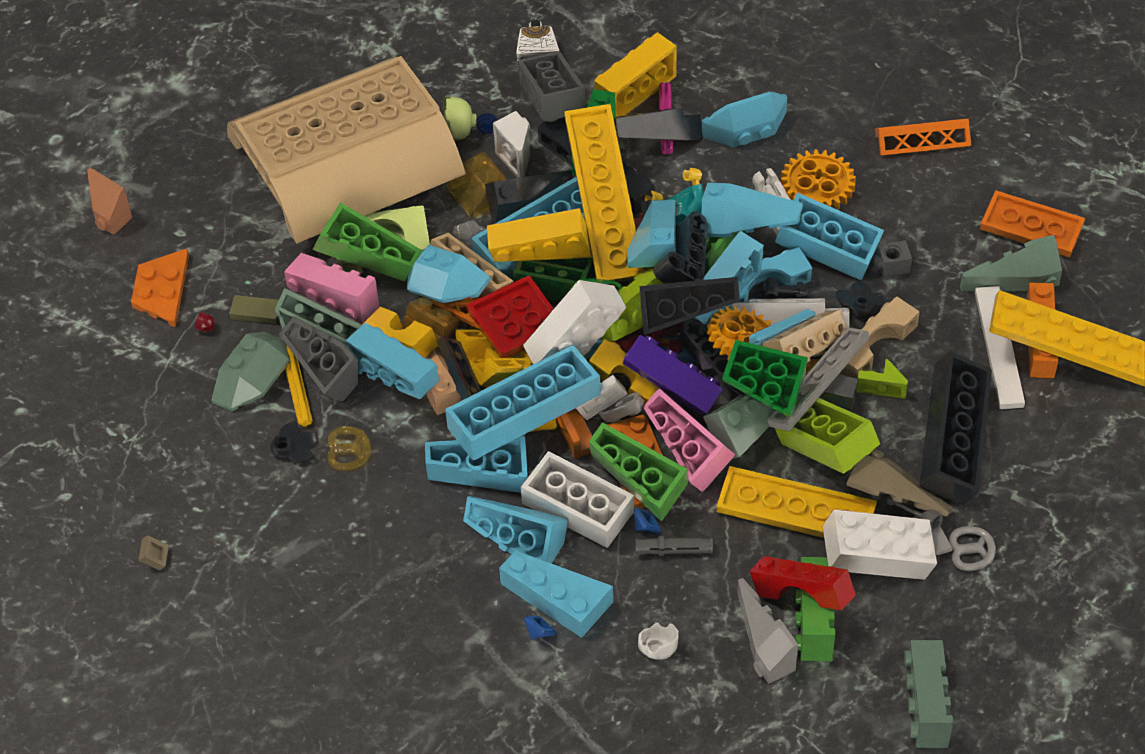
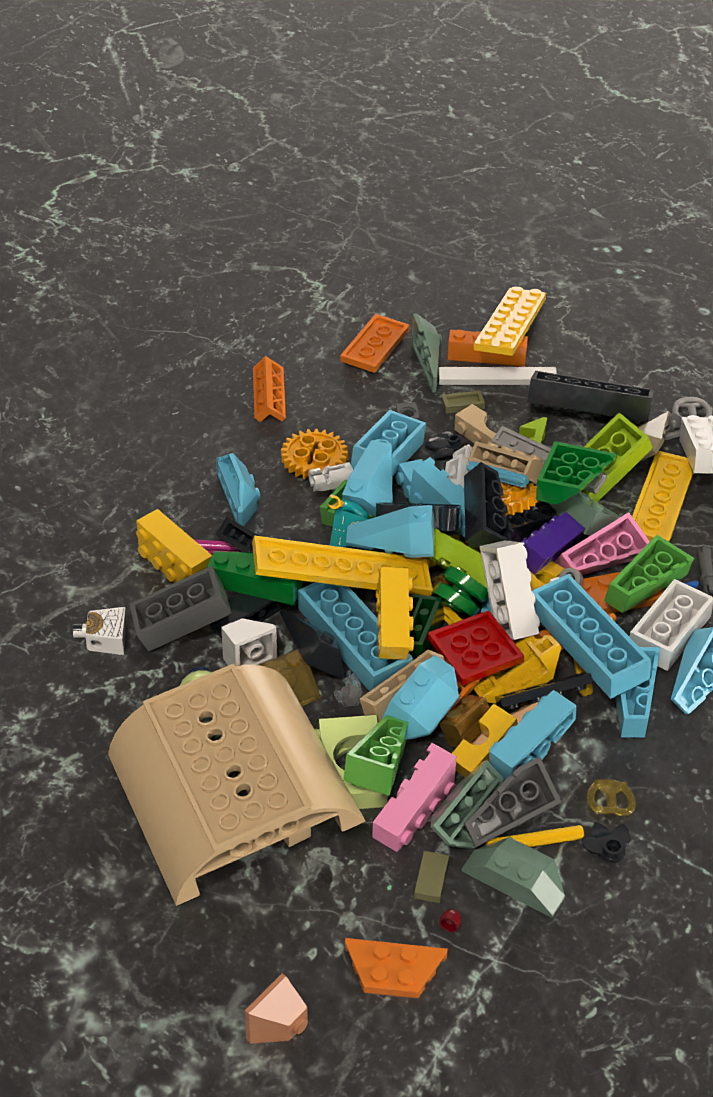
camera: 90 degrees left, 10 degrees down
(942, 314) = (458, 401): none -> olive tile

